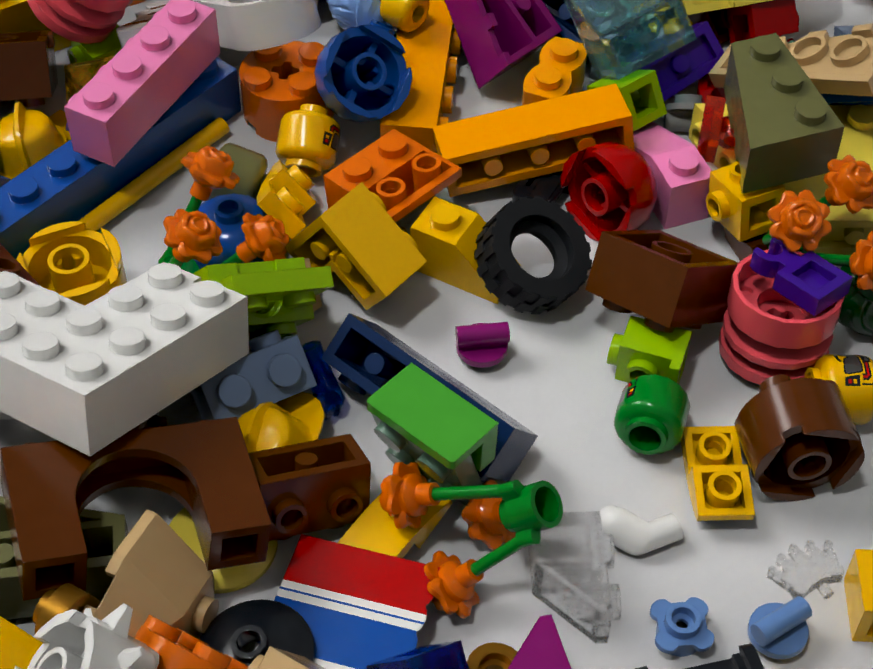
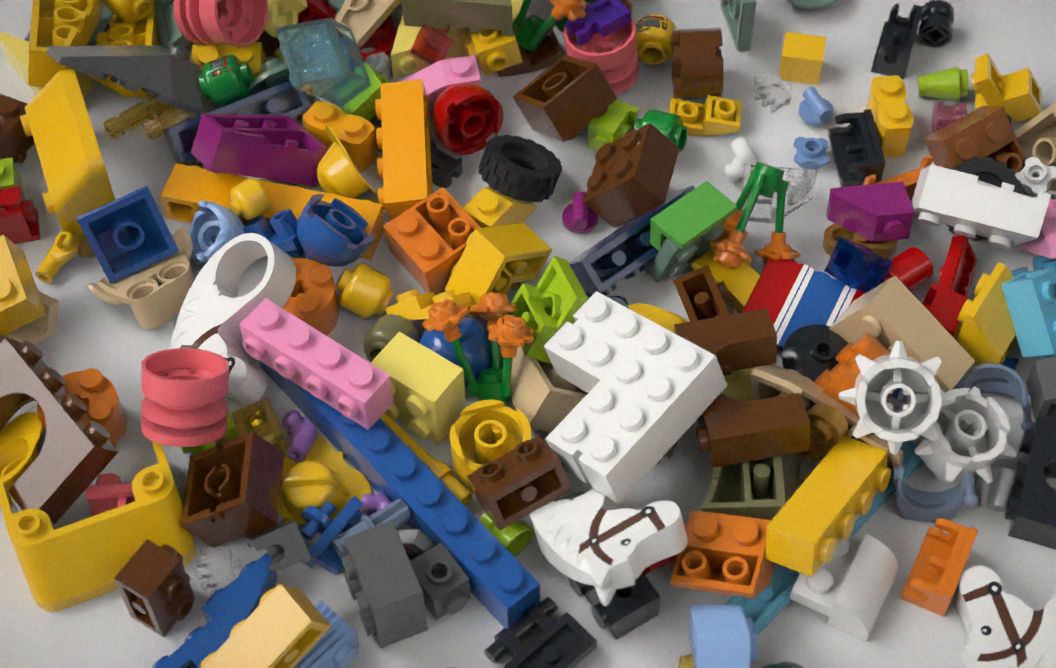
camera: 80 degrees left, 5 degrees up
(142, 189) = (424, 388): none -> light yellow brick
(492, 80) = (338, 173): none -> yellow piece
(538, 367) = (631, 175): none -> reddish brown brick

